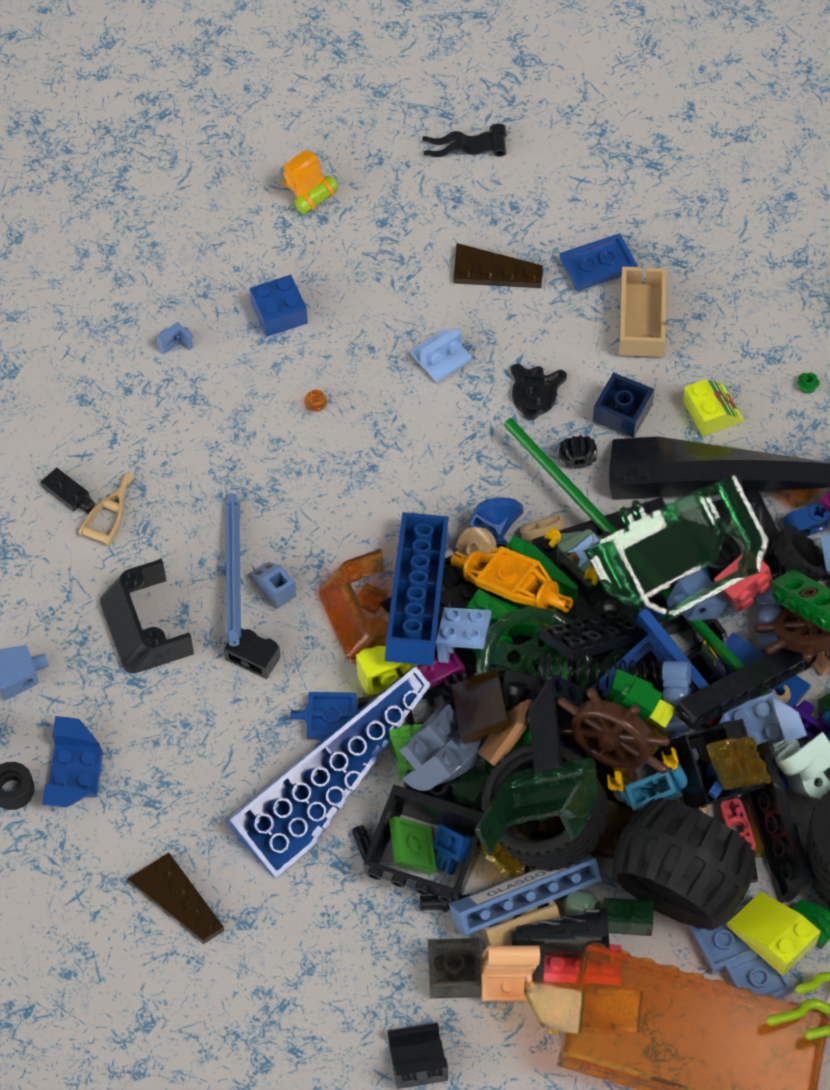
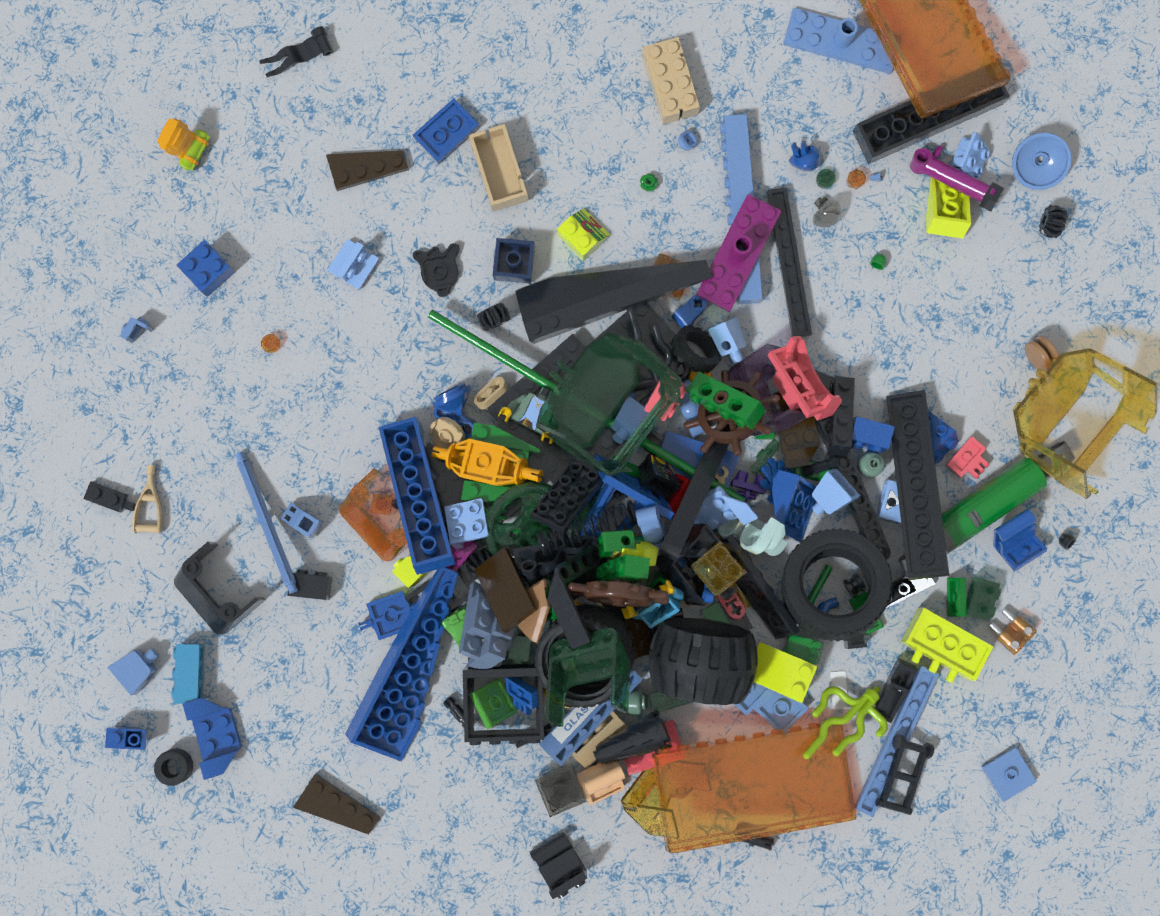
camera: 20 degrees left, 25 degrees up
(75, 691) = (188, 672): none -> dark azure brick

